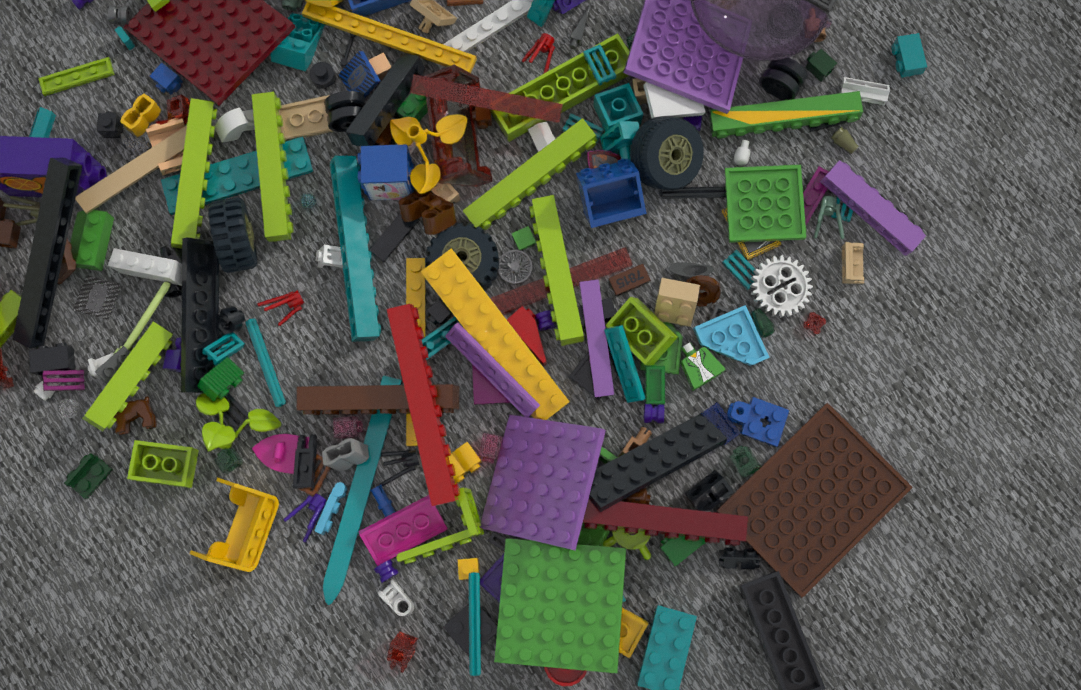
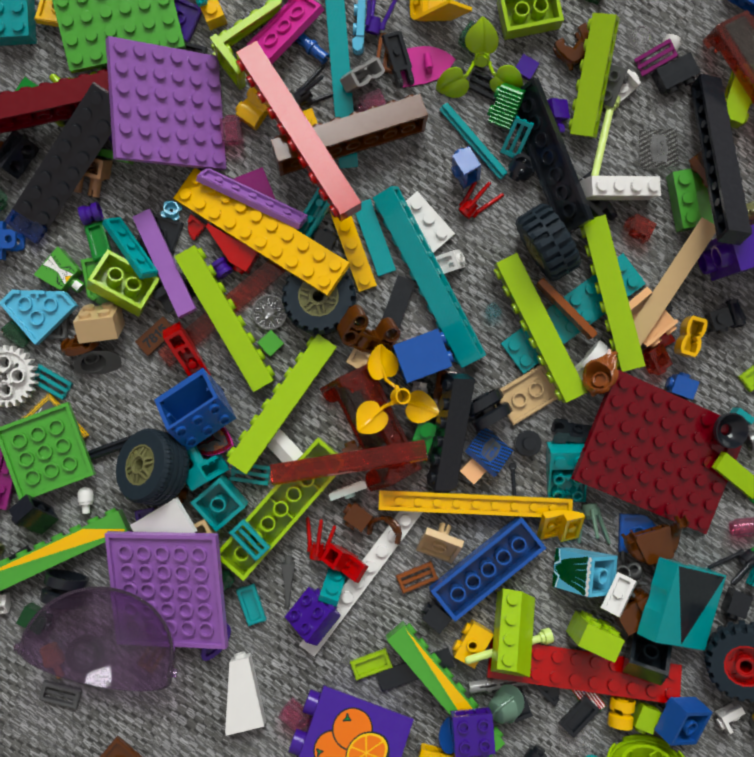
camera: 155 degrees right, 10 degrees up
(91, 127) = (737, 314): none -> black cone
(137, 20) = (737, 431): none -> black piece
(145, 229) = (639, 227): none -> clear red brick
(188, 416) = (527, 67): none -> dark purple tile
(232, 103) = (601, 373): none -> dark orange hair
(241, 177) = (578, 321): none -> dark orange tile
(278, 71) = (569, 432): none -> black plate
(281, 334) = (465, 166): none -> brick
(335, 300) = (430, 223): none -> white wing
(391, 295) = (375, 239): none -> teal tile
(471, 49) = (389, 520): none -> reddish brown helmet
(498, 60) = (356, 516): none -> reddish brown brick
(499, 84) = (347, 491): none -> light aqua plate
(524, 27) = (344, 561): none -> red brick
(558, 369) = (195, 227): none -> red tile
(569, 393) = (171, 205): none -> medium azure plate
(604, 252) = (183, 349): none -> red slope
(620, 17) = (251, 604): none -> teal tile
(792, 150) = (33, 514): none -> black brick

